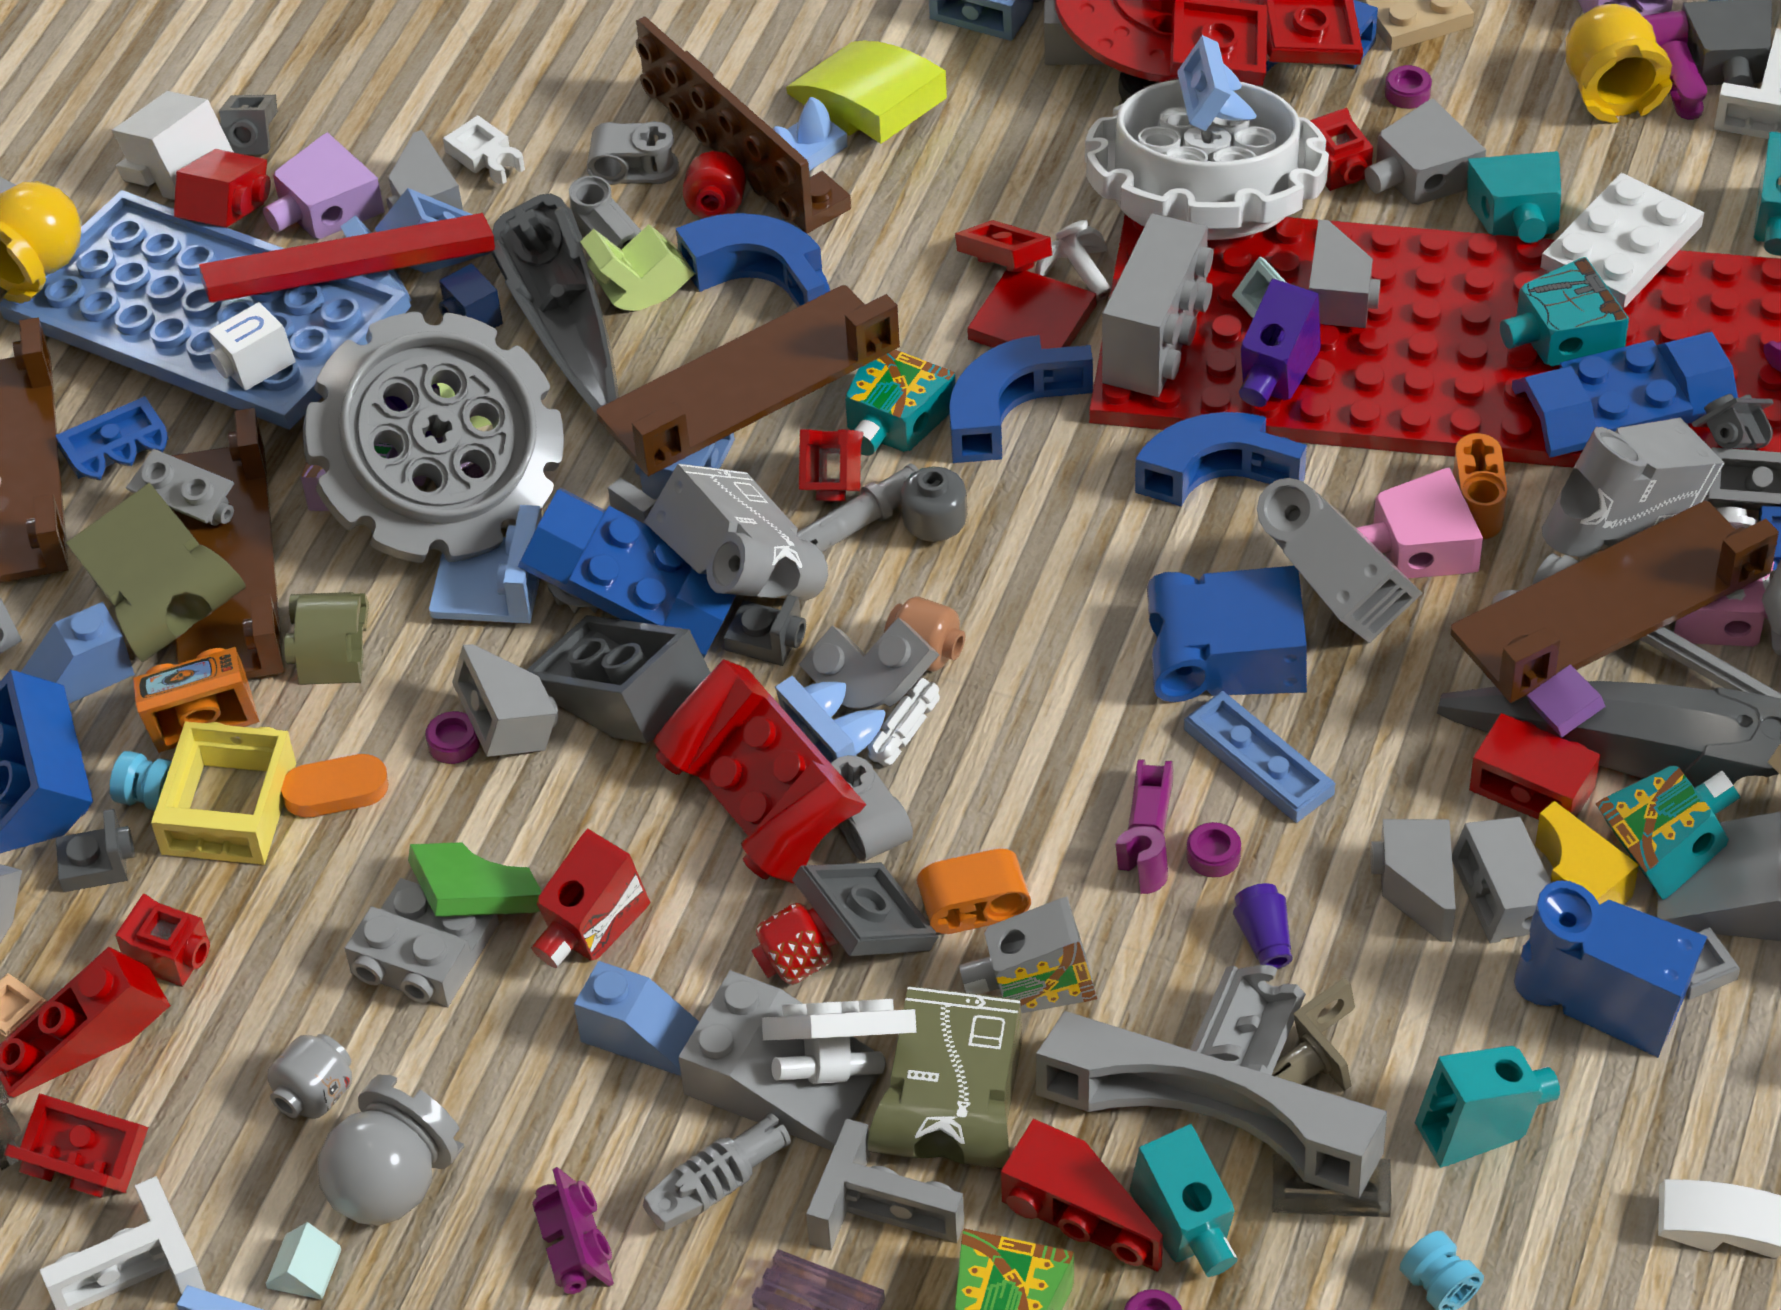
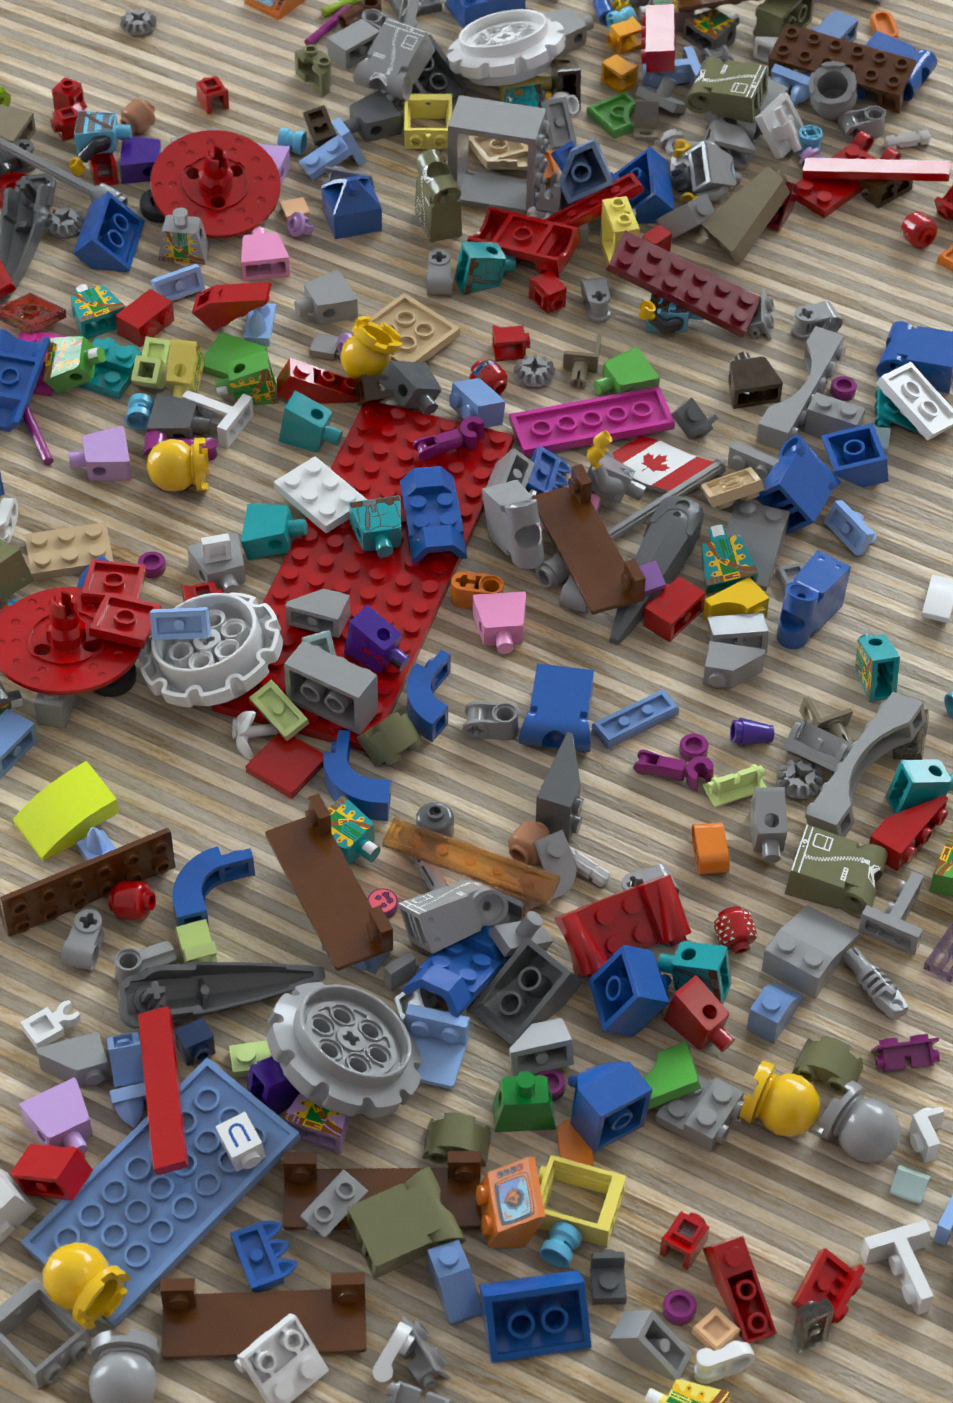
camera: 85 degrees left, 0 degrees up
(51, 957) = (679, 1307): none -> magenta tile
(309, 1076) = (791, 1168): light grey head -> none
(387, 677) = (523, 1104): none -> green torso
(388, 786) = (608, 1103): none -> blue piece
(394, 1268) = (922, 1132): none -> white bracket
(426, 1026) = (783, 1102): none -> yellow tile
(526, 1119) = (829, 1062): none -> olive cylinder
(624, 799) = (629, 991): none -> blue piece
(683, 872) = (705, 961): none -> teal torso
(719, 635) = (511, 935): none -> light grey tile
(776, 475) = (386, 899): none -> tile
(812, 712) = (593, 888): light blue tile -> none
(827, 1035) = (818, 900): white plate -> none
(830, 462) = (391, 866): red window -> none
(850, 553) = (471, 861): none -> clear orange tile
(865, 908) = (720, 892): dark grey tile -> none
(1004, 245) = (234, 762): red plate -> none
(1035, 649) = (559, 797): none -> dark grey slope
(1100, 275) = (279, 710): none -> yellowish green plate
(1109, 423) = (390, 738): none -> olive cylinder
(1131, 915) = (734, 786): none -> yellowish green hinge
(1154, 1012) = (794, 786): none -> light grey gear
(1184, 541) = (493, 720): none -> light grey piece
(1335, 558) = (542, 643): light grey piece -> none
(1421, 119) = (216, 548): none -> white tile
(1737, 421) = (481, 471): dark grey hinge -> none

